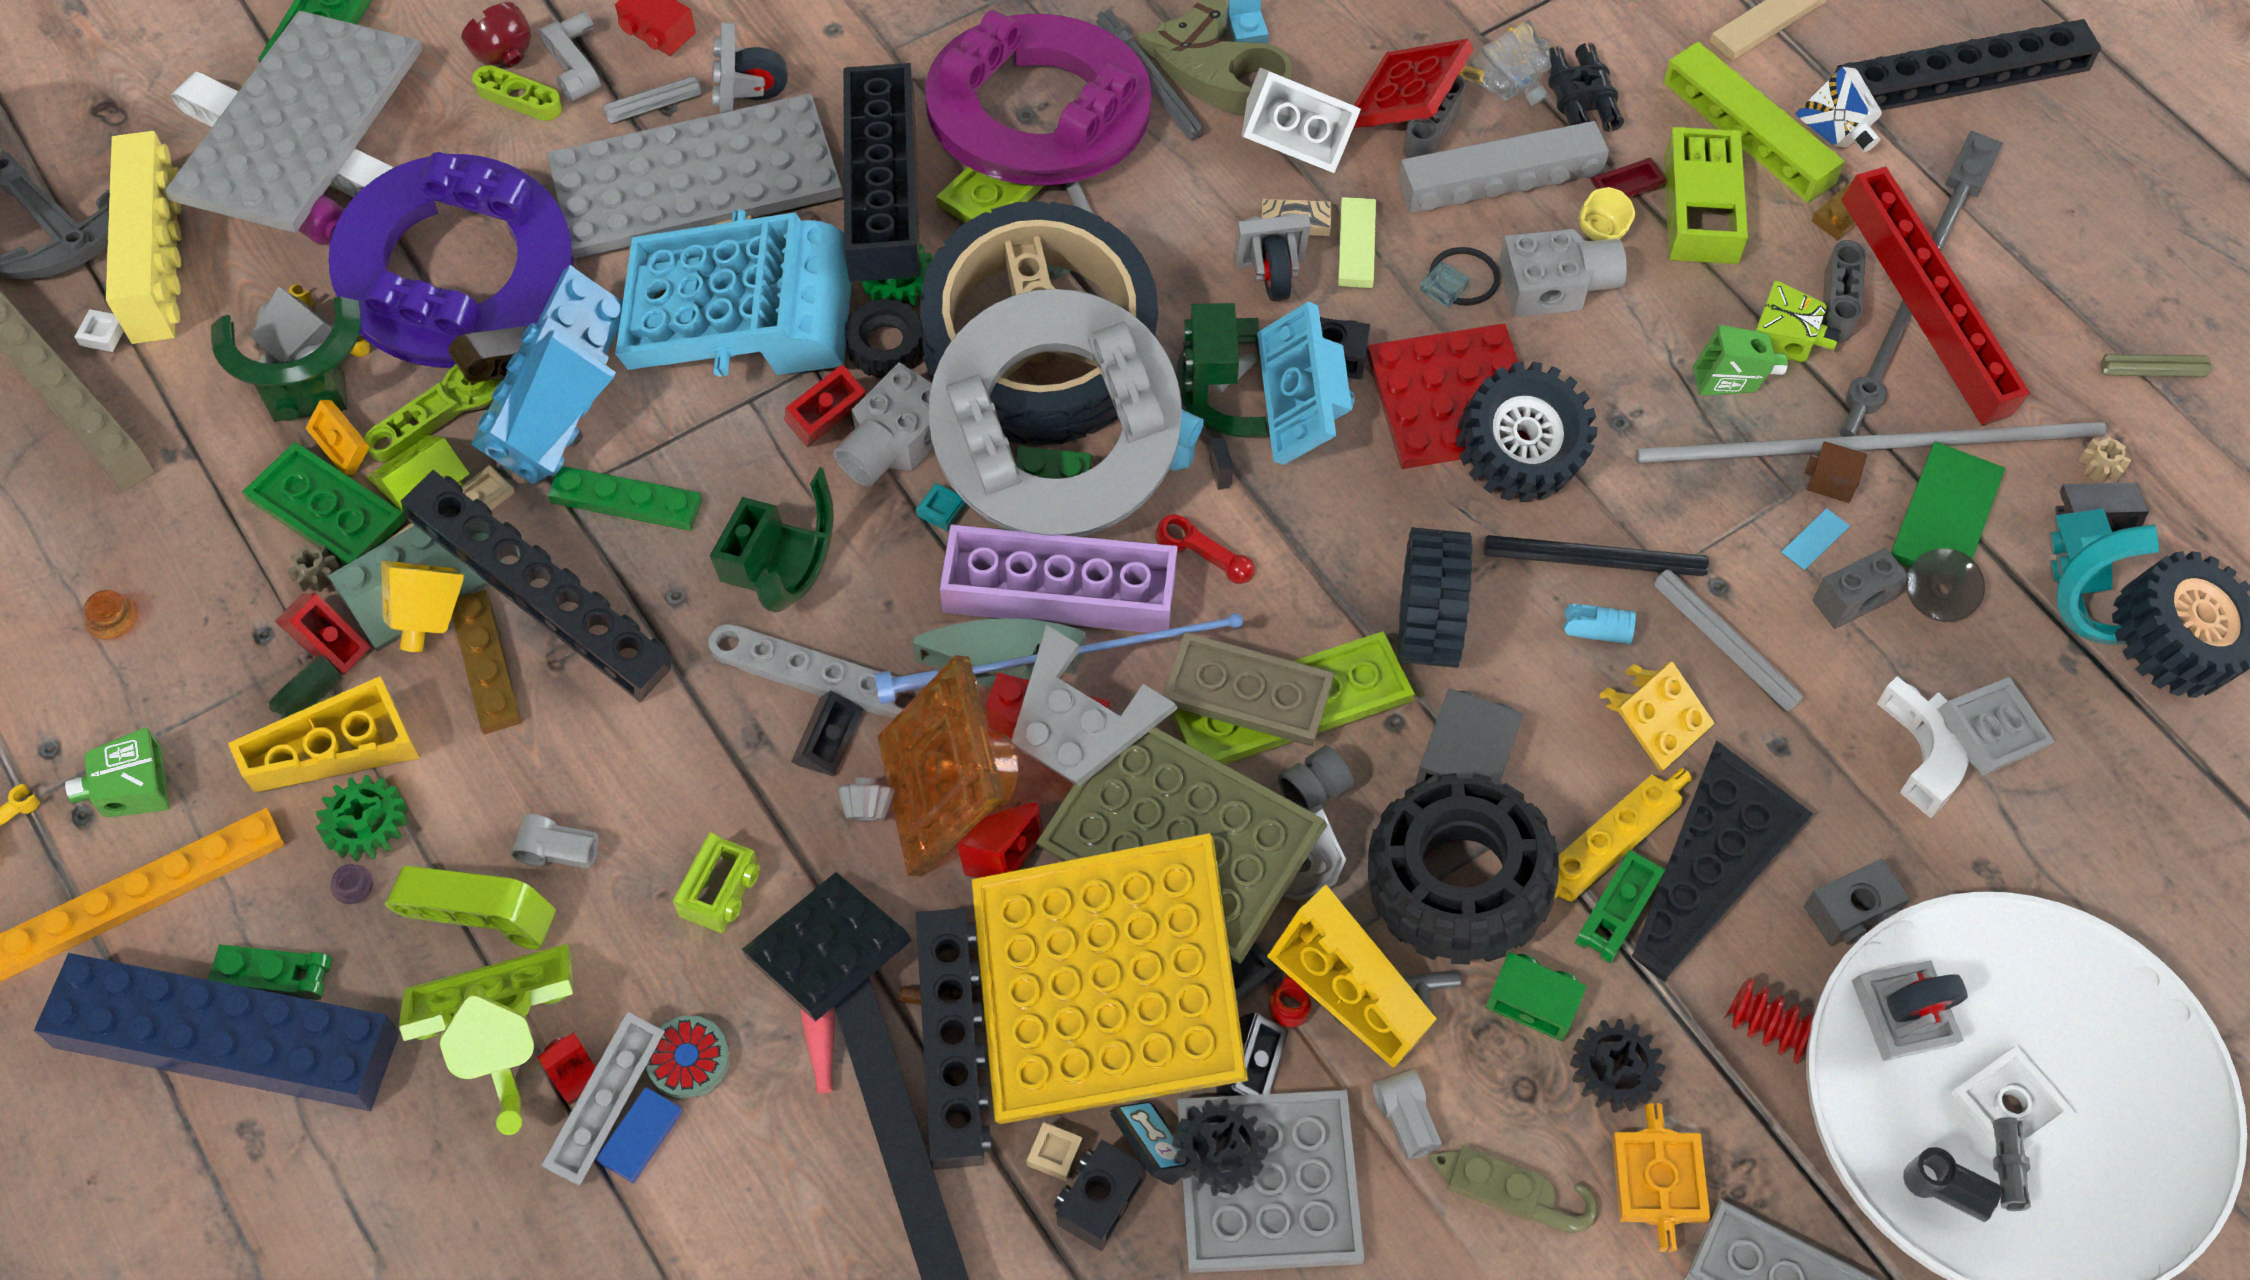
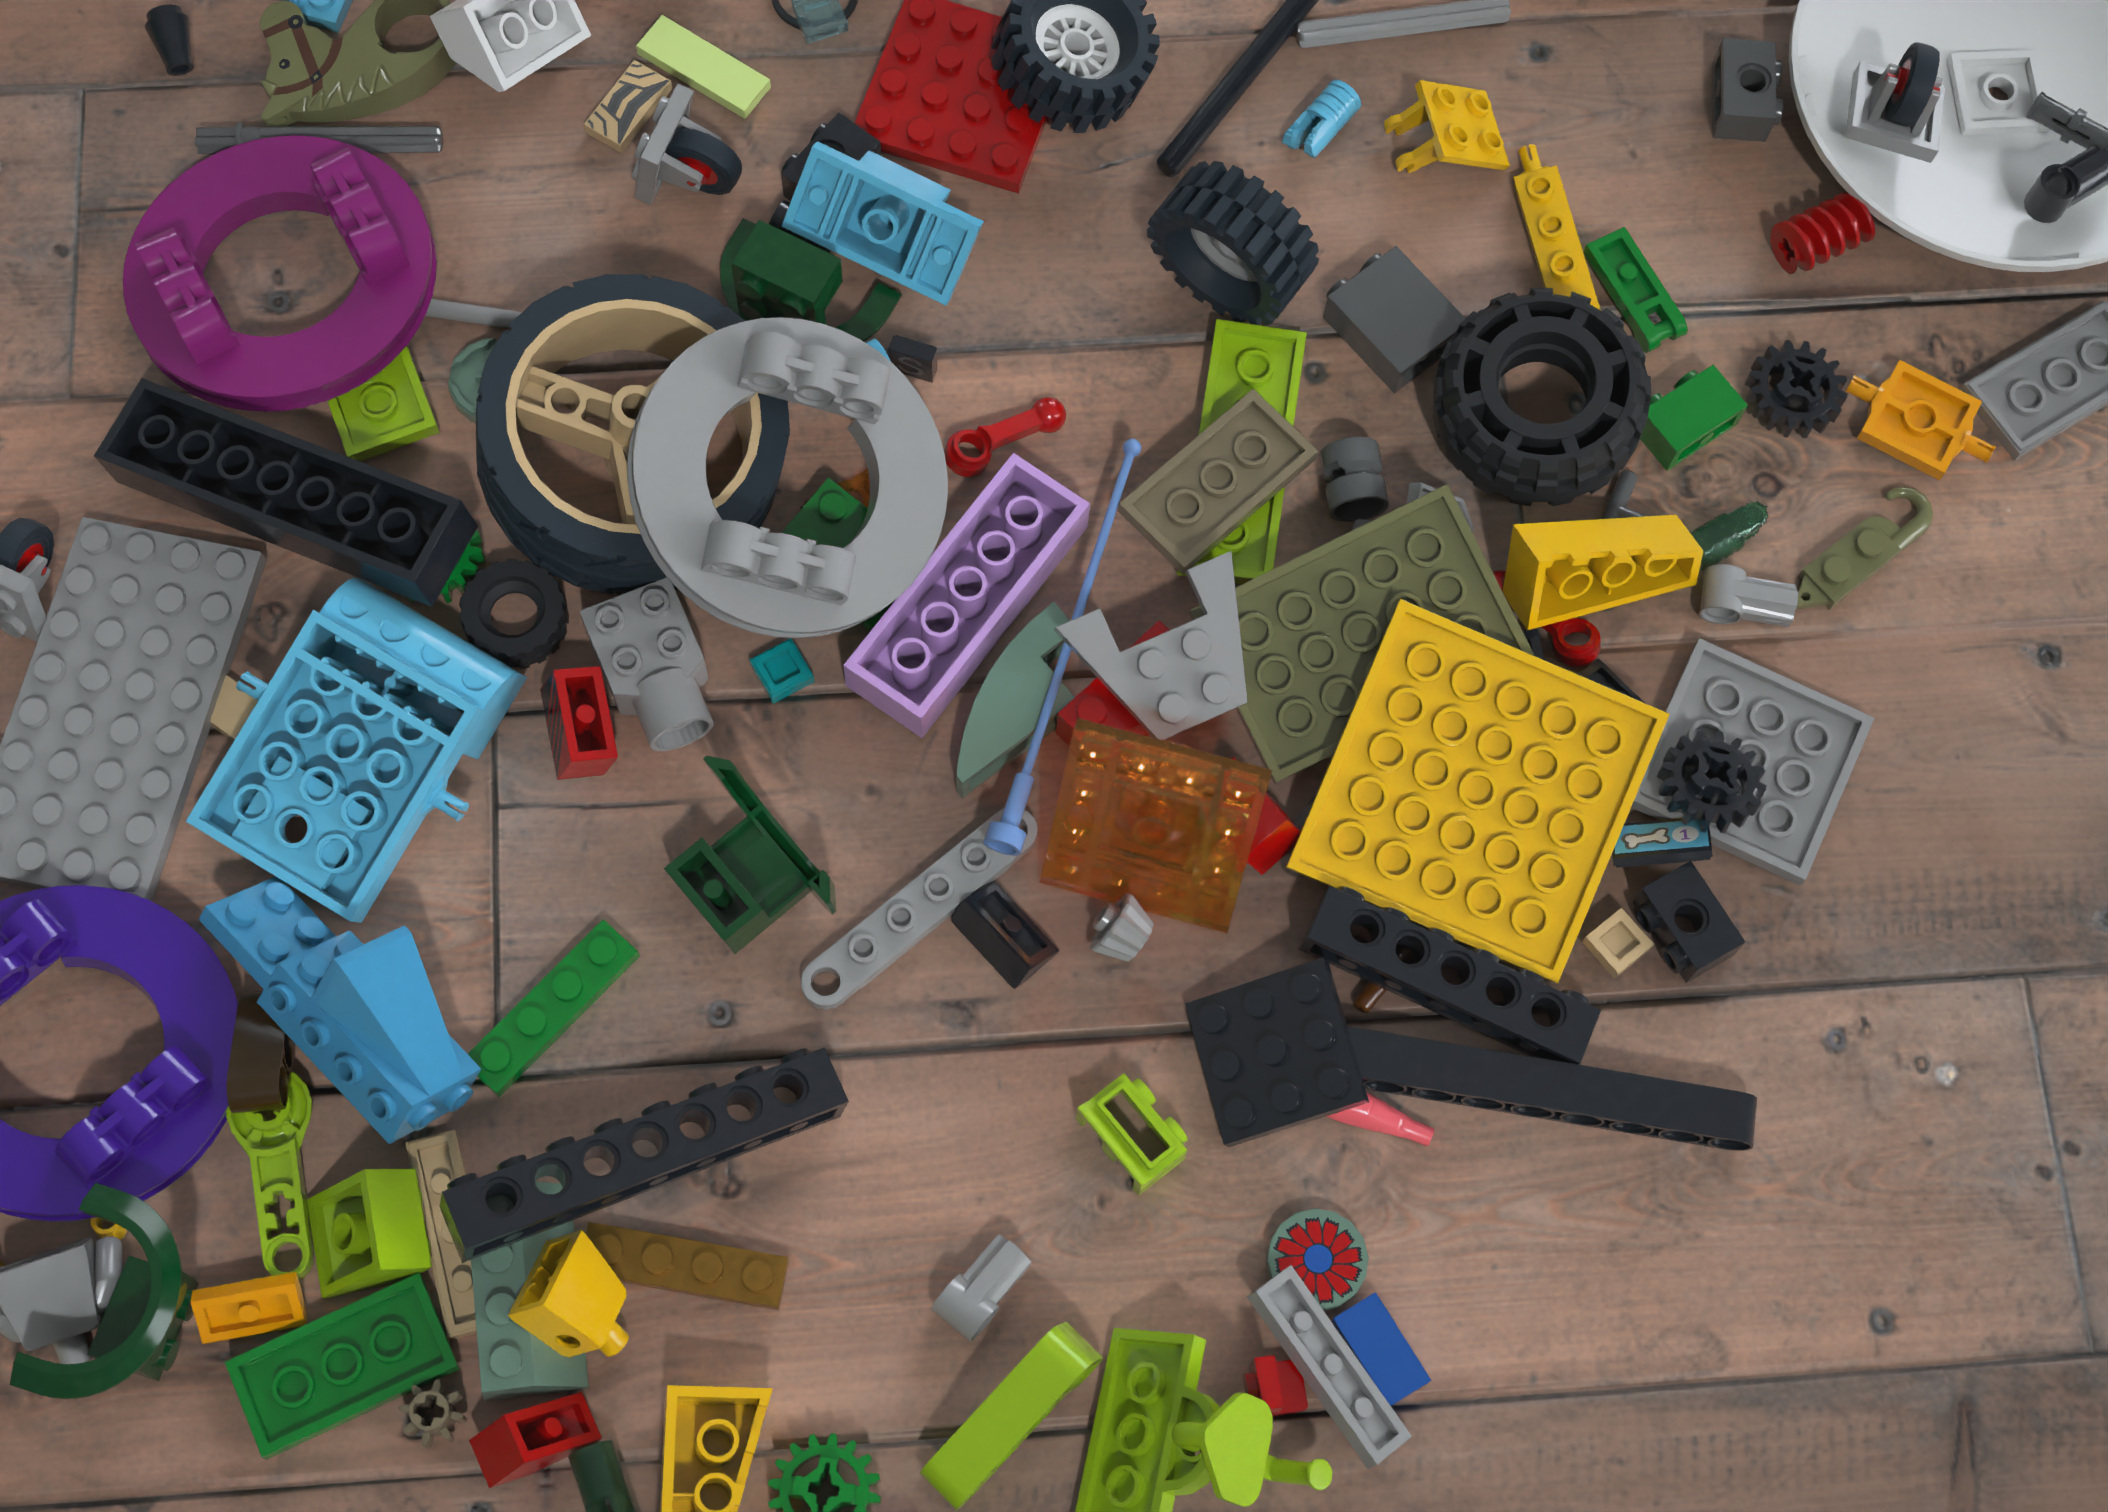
camera: 65 degrees left, 10 degrees up
(1452, 1070) = (1729, 532): none -> clear green hinge
(1723, 847) = (1622, 160): black wing -> none

